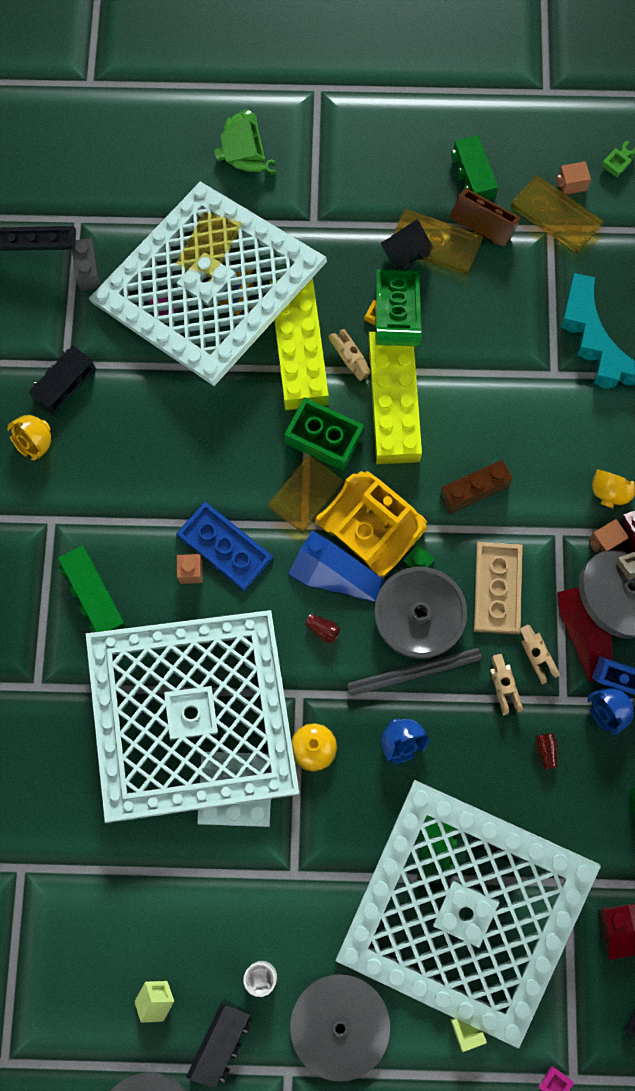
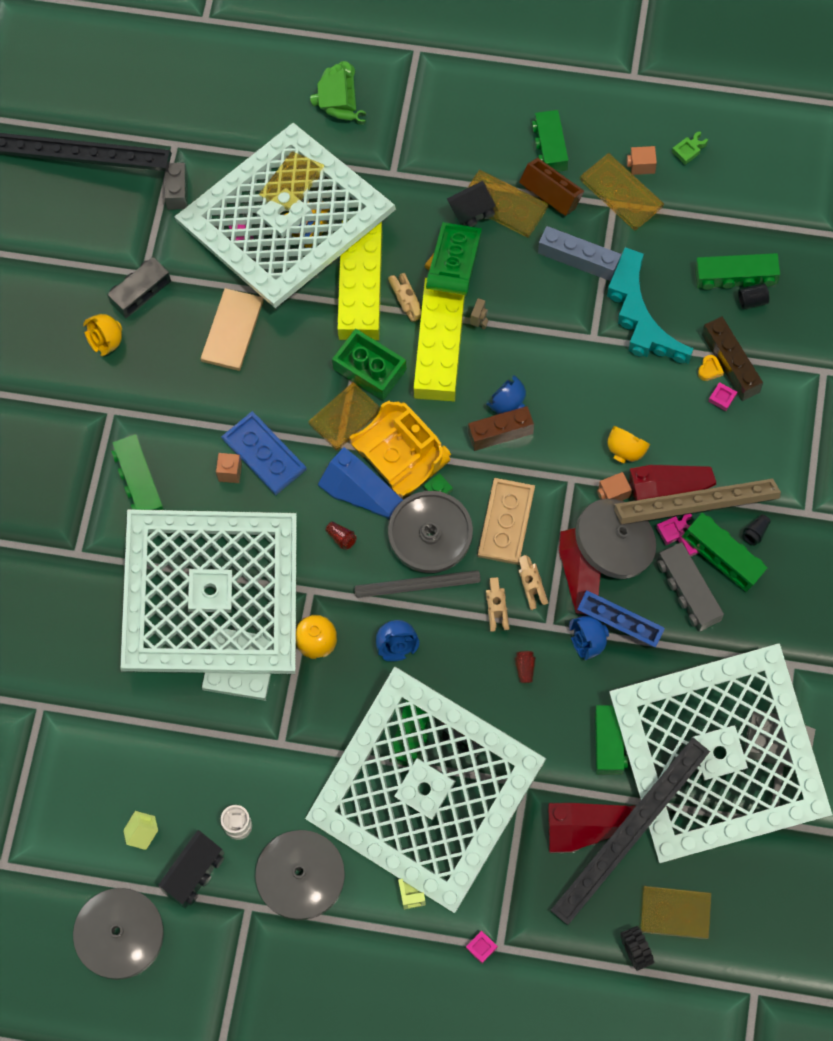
camera: 10 degrees right, 5 degrees down
(169, 413) = (232, 329): none -> tan tile
(433, 366) = (479, 314): none -> dark tan plate
(478, 451) = (508, 397): none -> blue cylinder
(526, 285) = (578, 253): none -> sand blue brick

